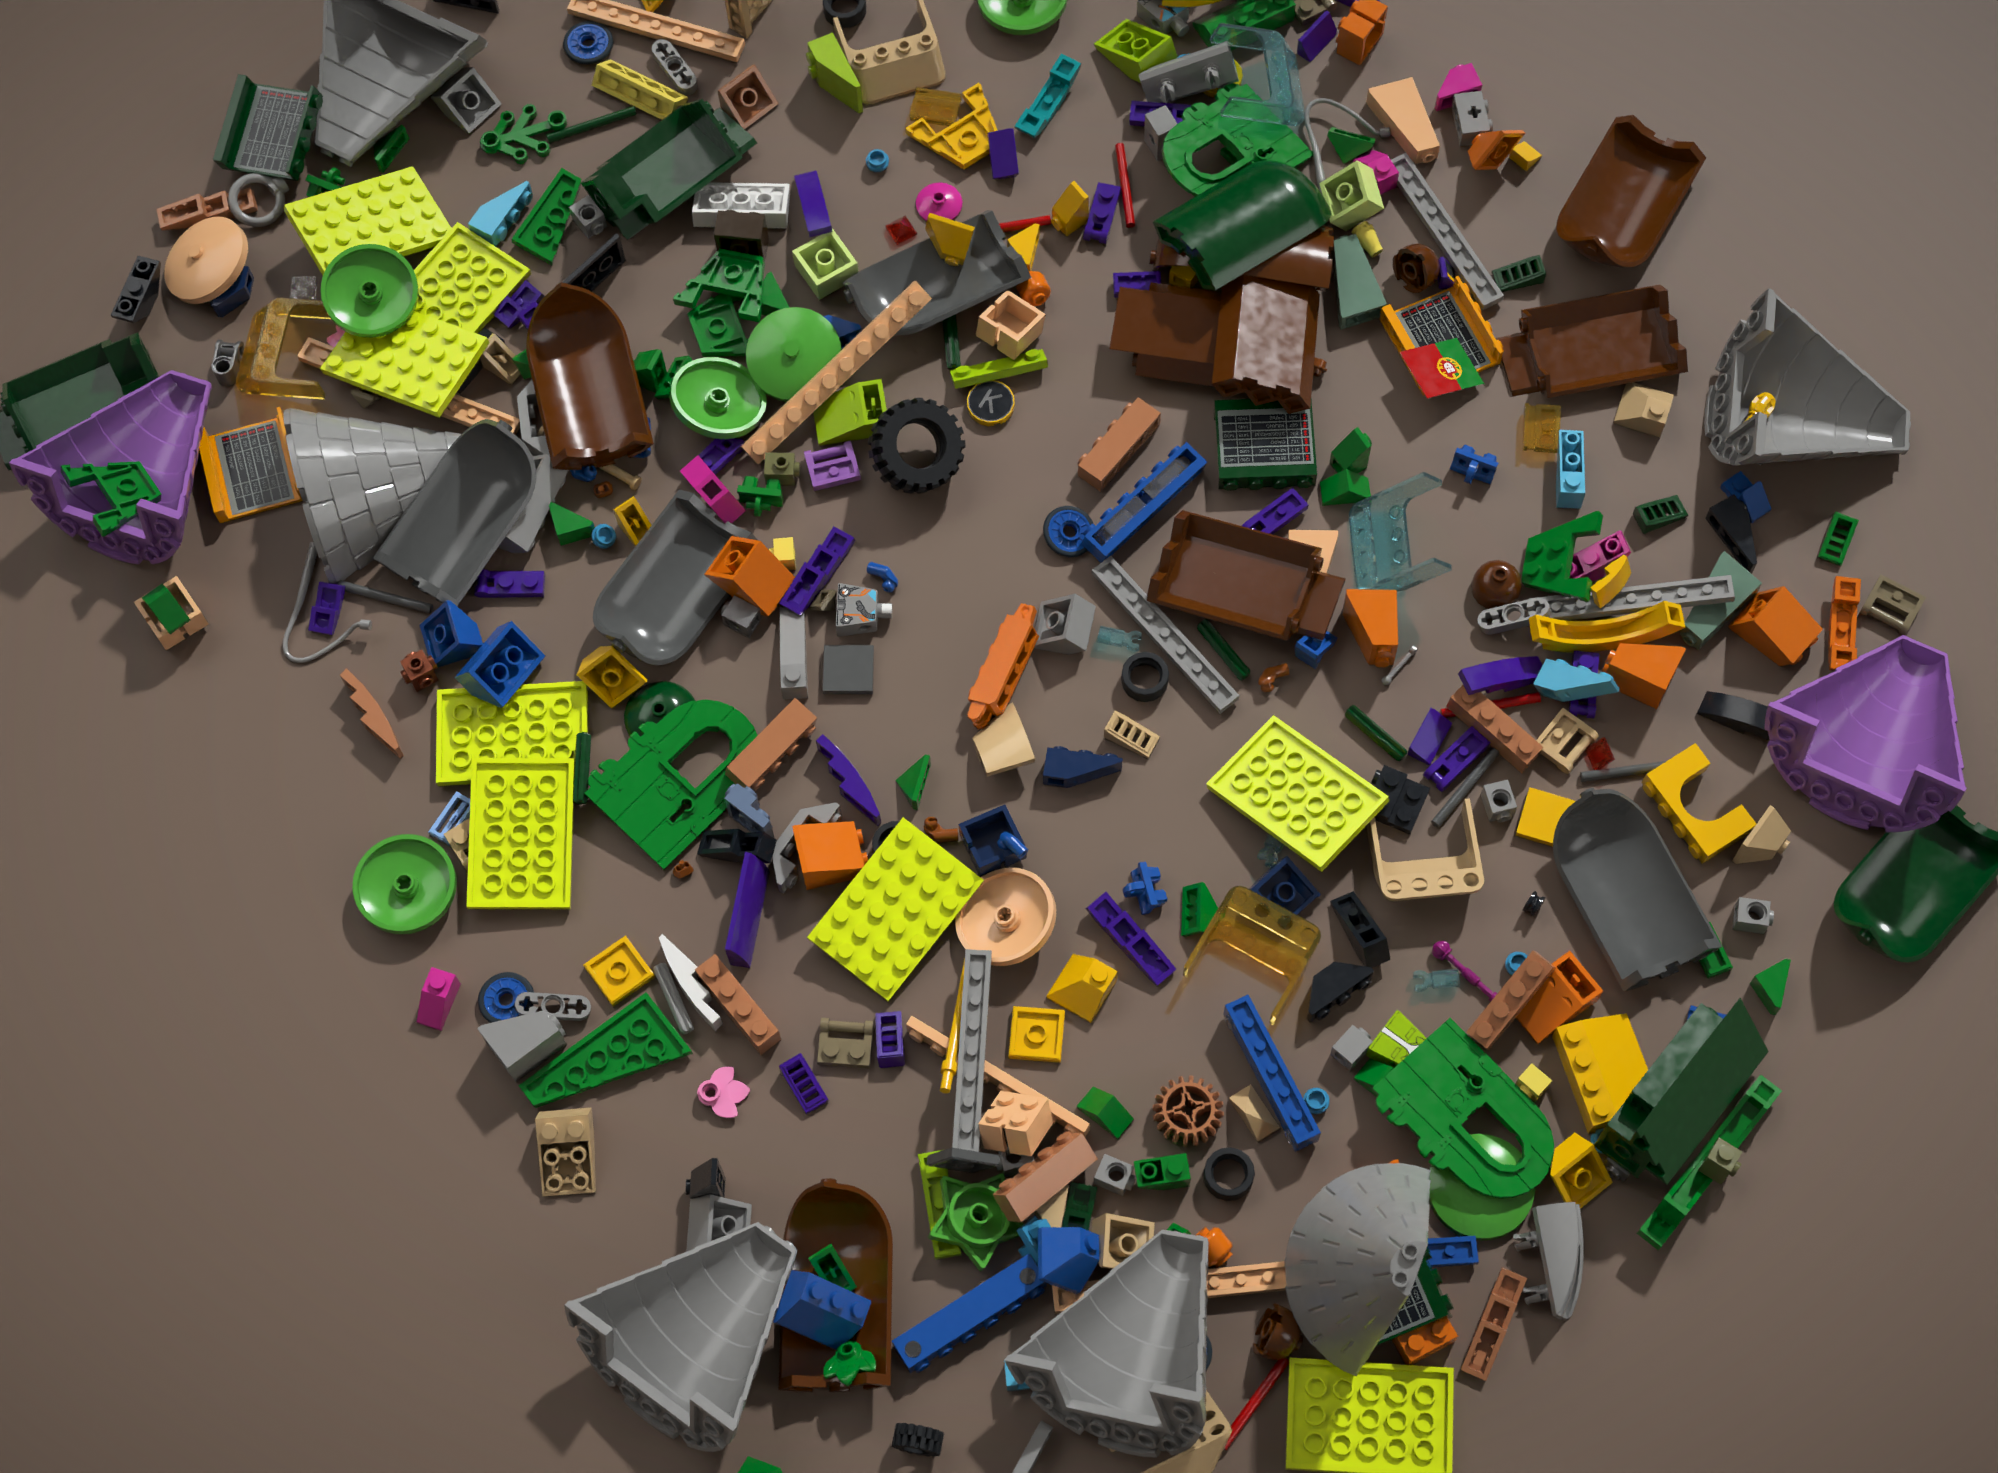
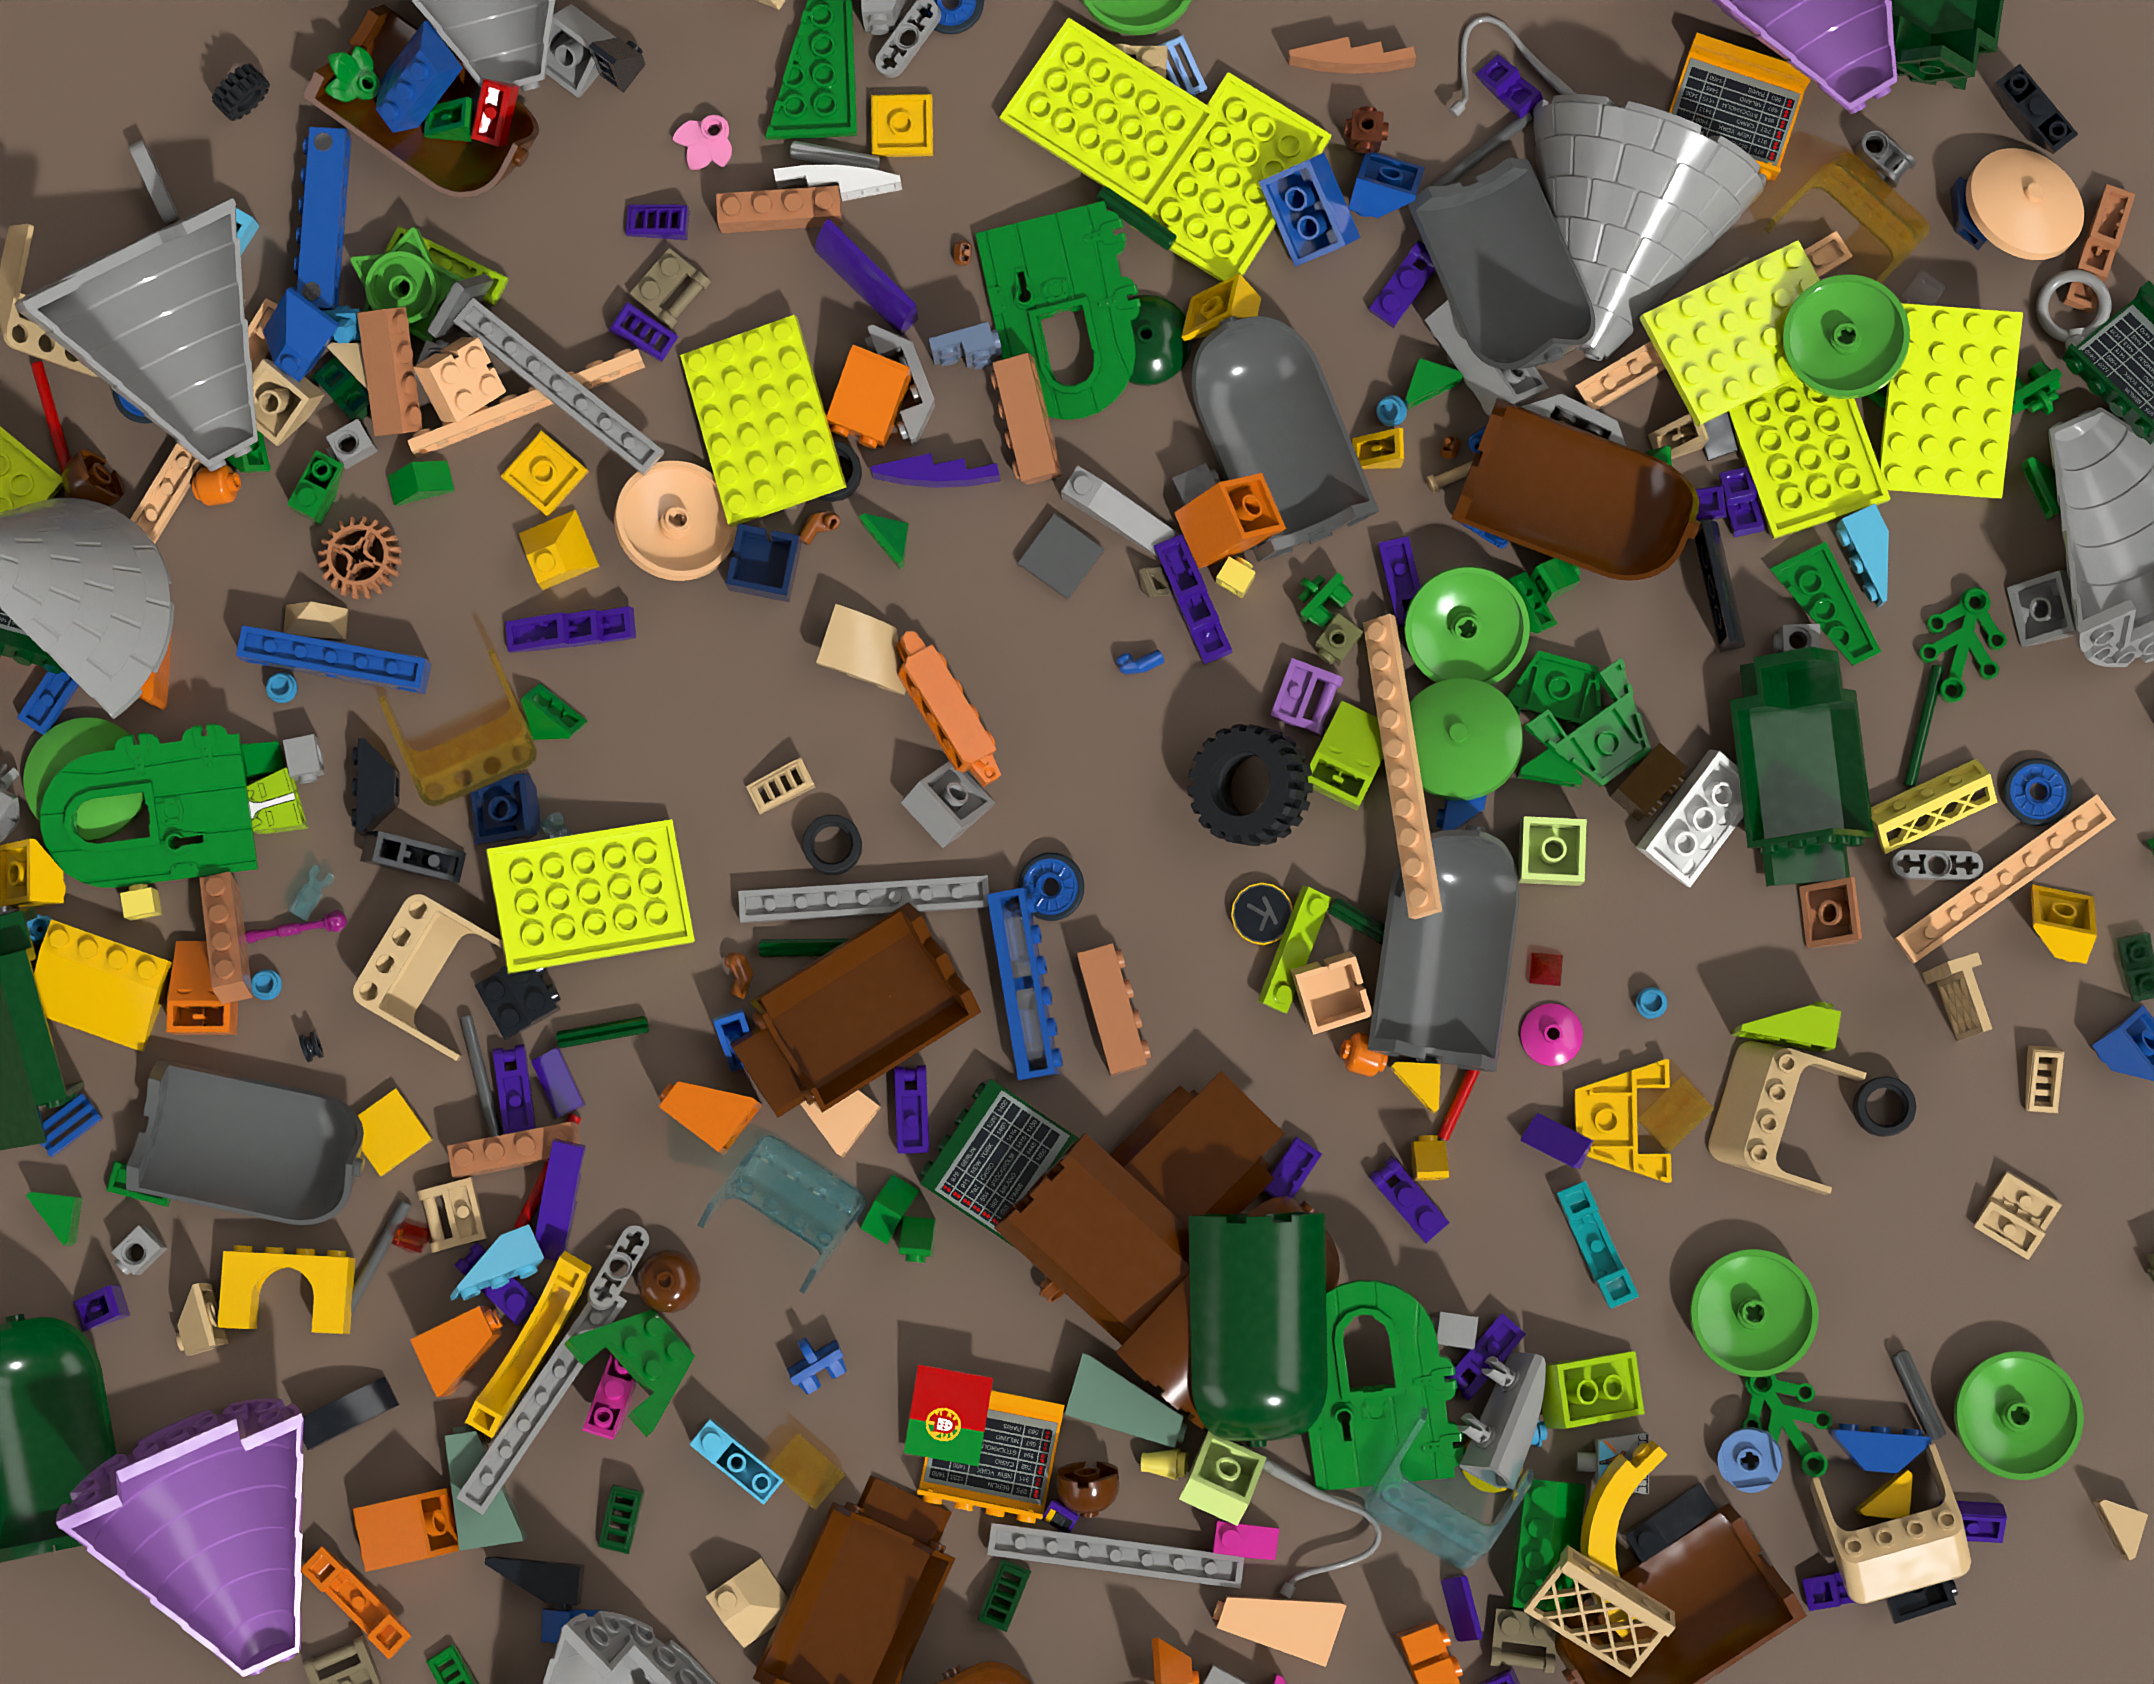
camera: 125 degrees right, 15 degrees up
(712, 490) = (1359, 546): dark pink slope -> none
(733, 843) = (943, 314): black slope -> none
(806, 1237) = (494, 112): none -> red slope
(813, 203) = (1639, 889): dark purple slope -> none
(859, 610) = (1116, 609): light grey torso -> none
(949, 238) = (1480, 997): yellow slope -> none
(949, 1065) = (558, 354): yellow bar -> none
(1009, 841) = (742, 571): blue arm -> none
(1073, 768) = (787, 698): dark blue slope -> none
(1119, 638) = (896, 849): clear light blue bar -> none
(1125, 185) = (1427, 1252): red bar -> none
(1142, 888) = (621, 685): blue hips -> none
(1240, 1157) = (262, 530): black tyre -> none
(1349, 144) = (1300, 1540): green slope -> none
(1386, 680) = (652, 1088): light grey hinge -> none
(1498, 791) = (451, 1098): light grey brick -> none
(1616, 577) = (572, 1399): yellow slope -> none
(1807, 913) = (101, 1307): none -> dark purple slope

